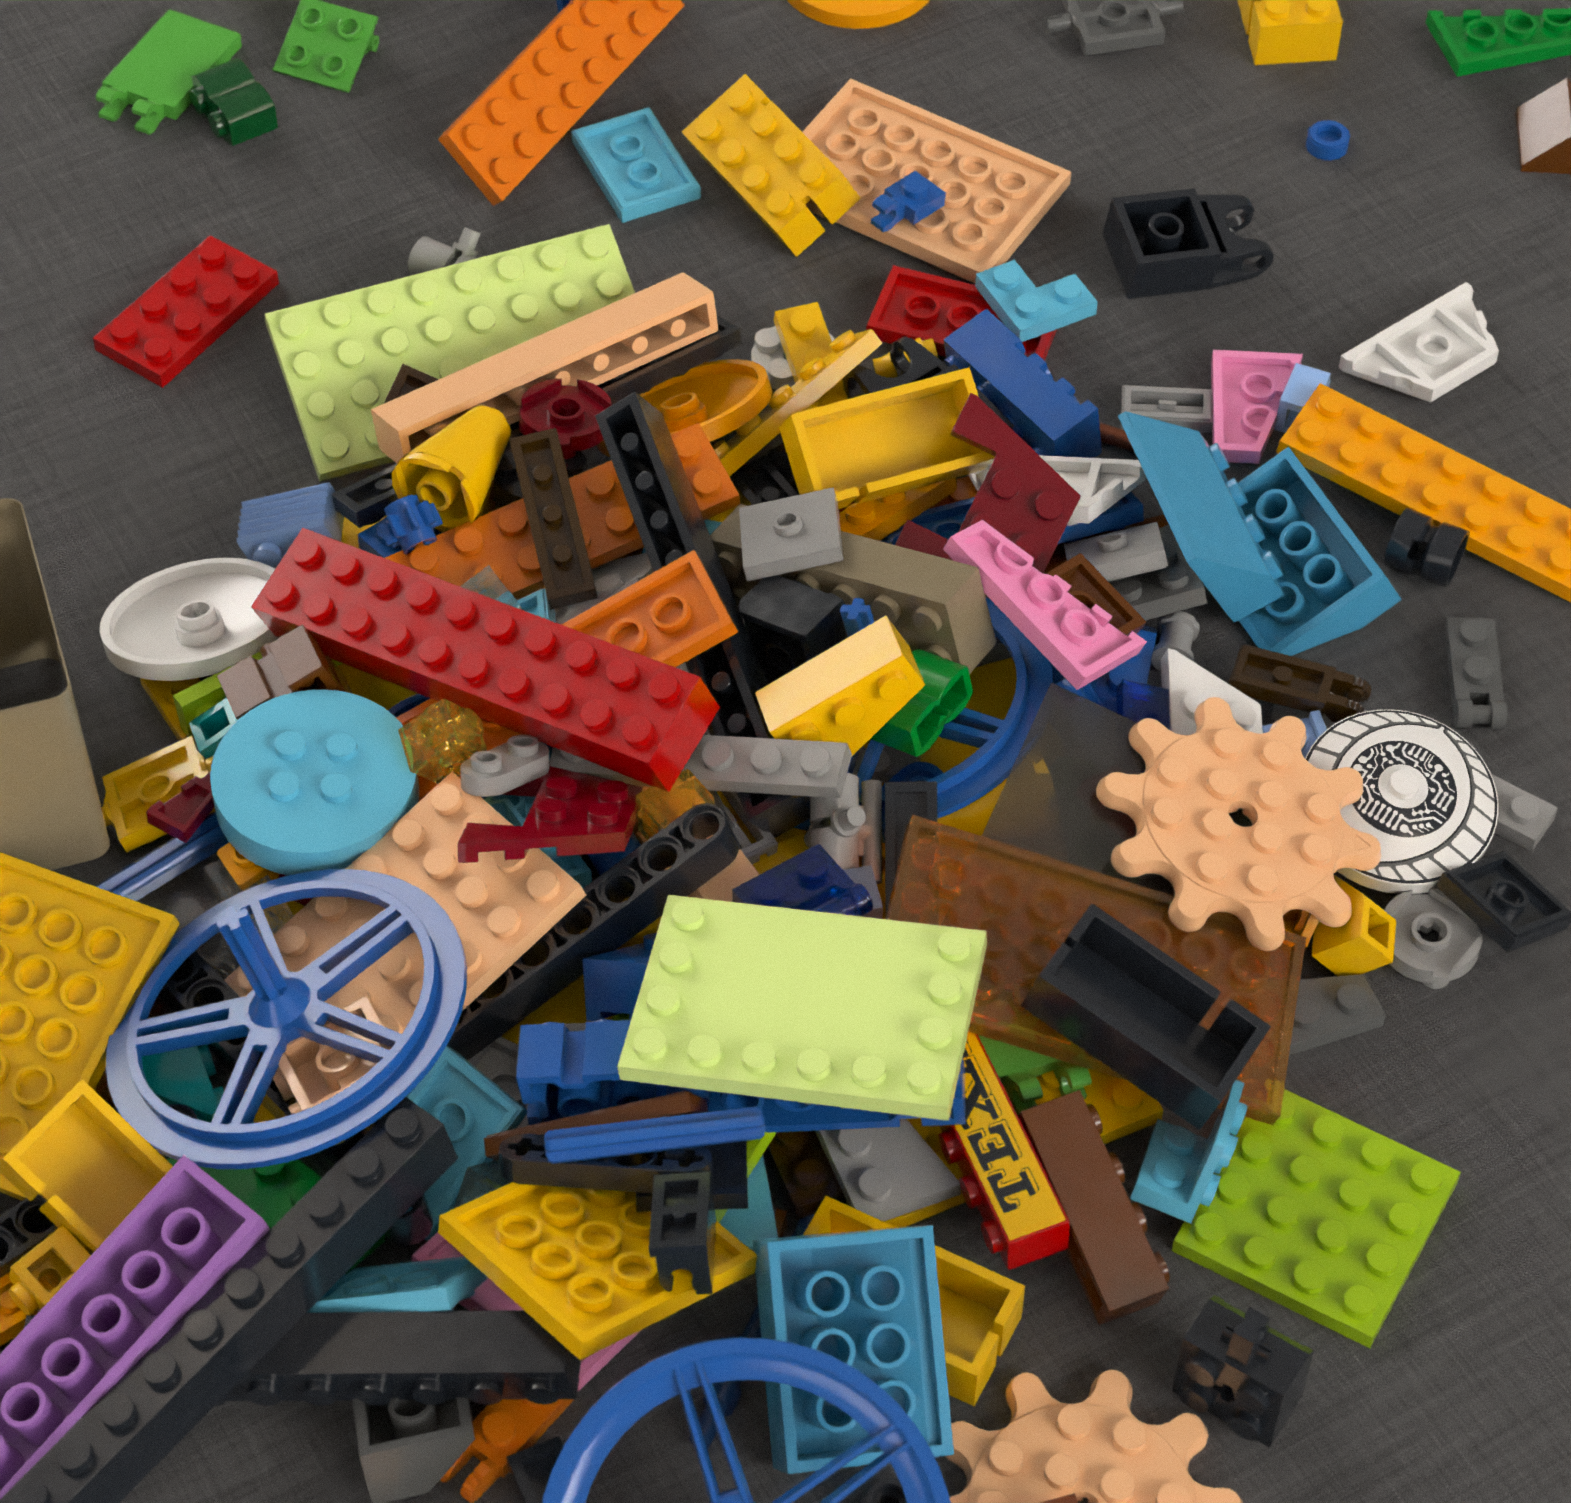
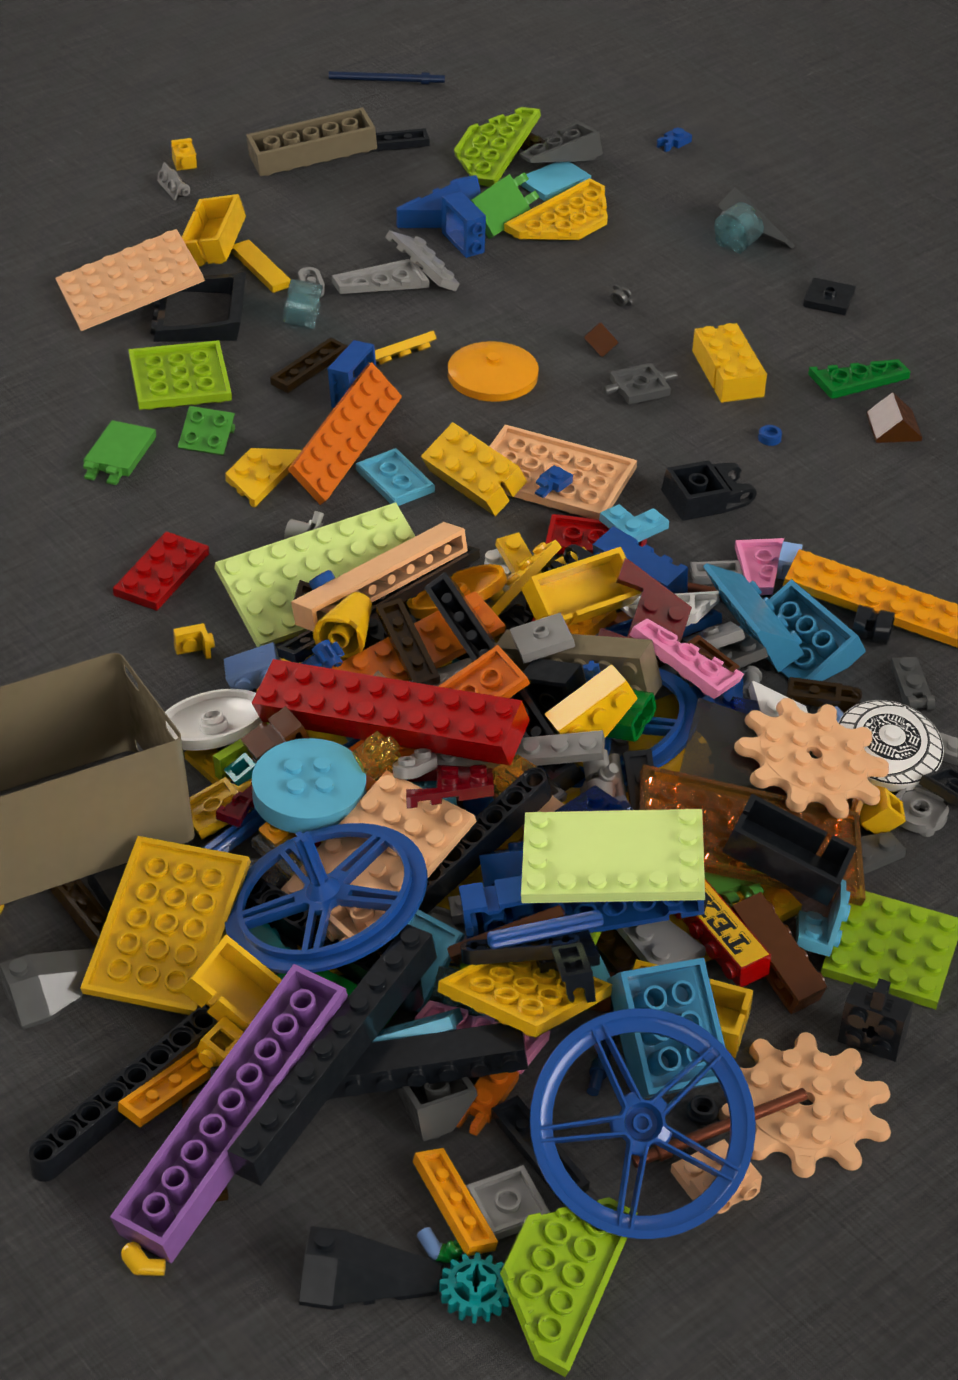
camera: 10 degrees left, 10 degrees down
(205, 453) = (193, 639): none -> yellow bracket
(233, 102) = (162, 463): dark green brick -> none
(400, 133) = (260, 472): none -> yellow wing
(437, 369) = (321, 579): none -> blue tile
(566, 409) = (408, 590): dark red plate -> none
(1427, 349) = (849, 531): white wing -> none

